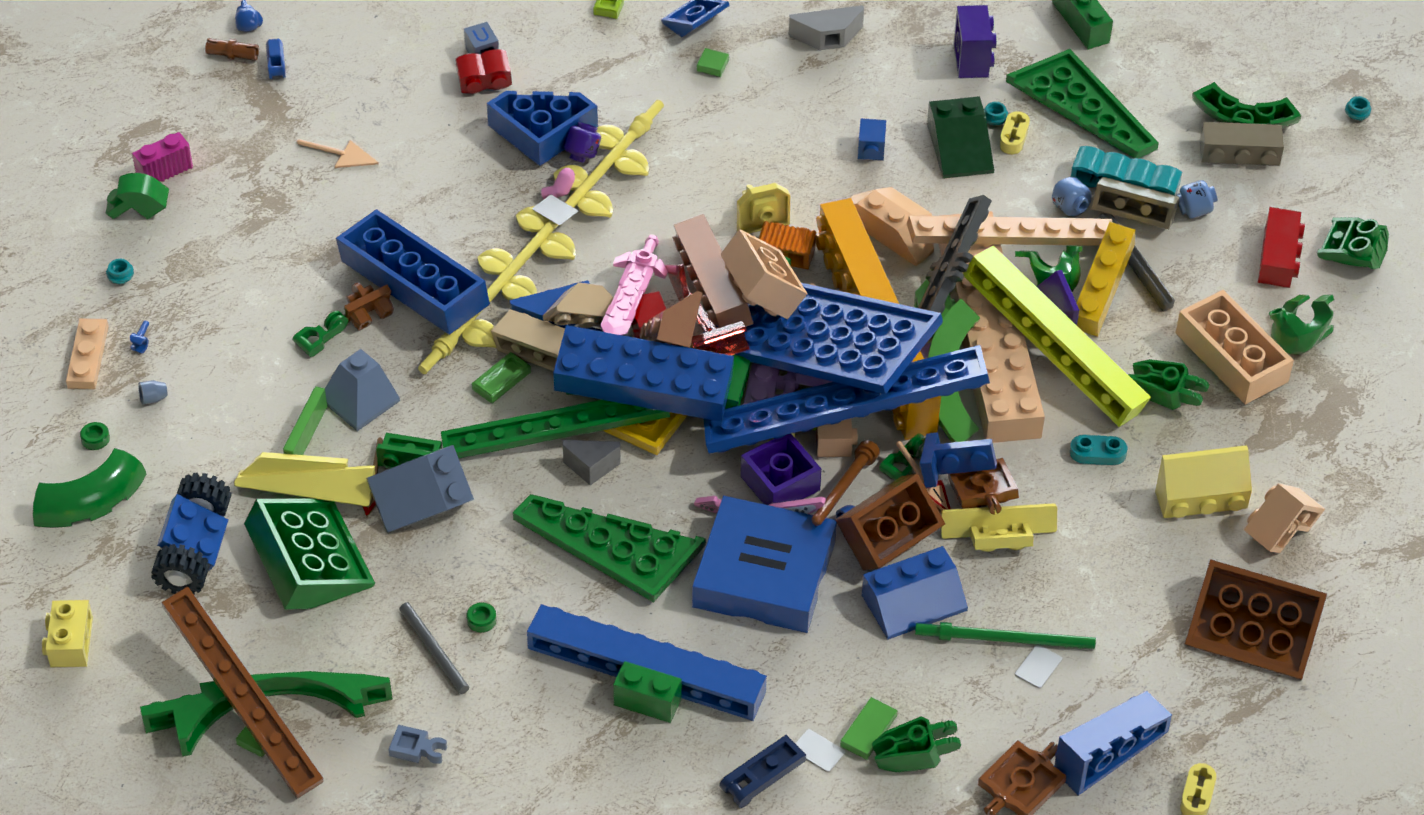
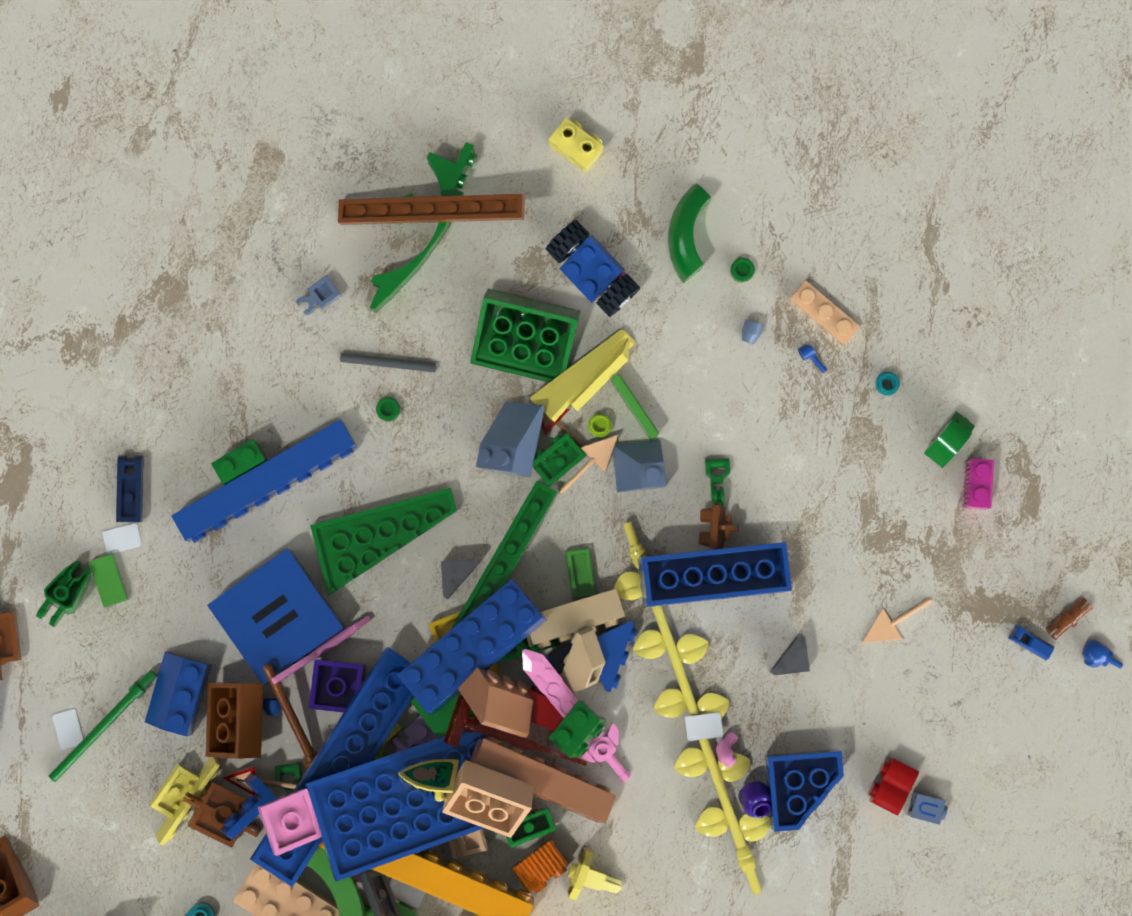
camera: 130 degrees right, 35 degrees up
(346, 445) = (599, 425): none -> lime plate
(377, 429) = (599, 453): none -> light nougat piece
(437, 190) = (793, 659): none -> flat silver slope
(643, 270) = (578, 730): none -> green bracket
(783, 319) = (432, 776): none -> shield
(926, 373) = (290, 821): none -> bright pink plate

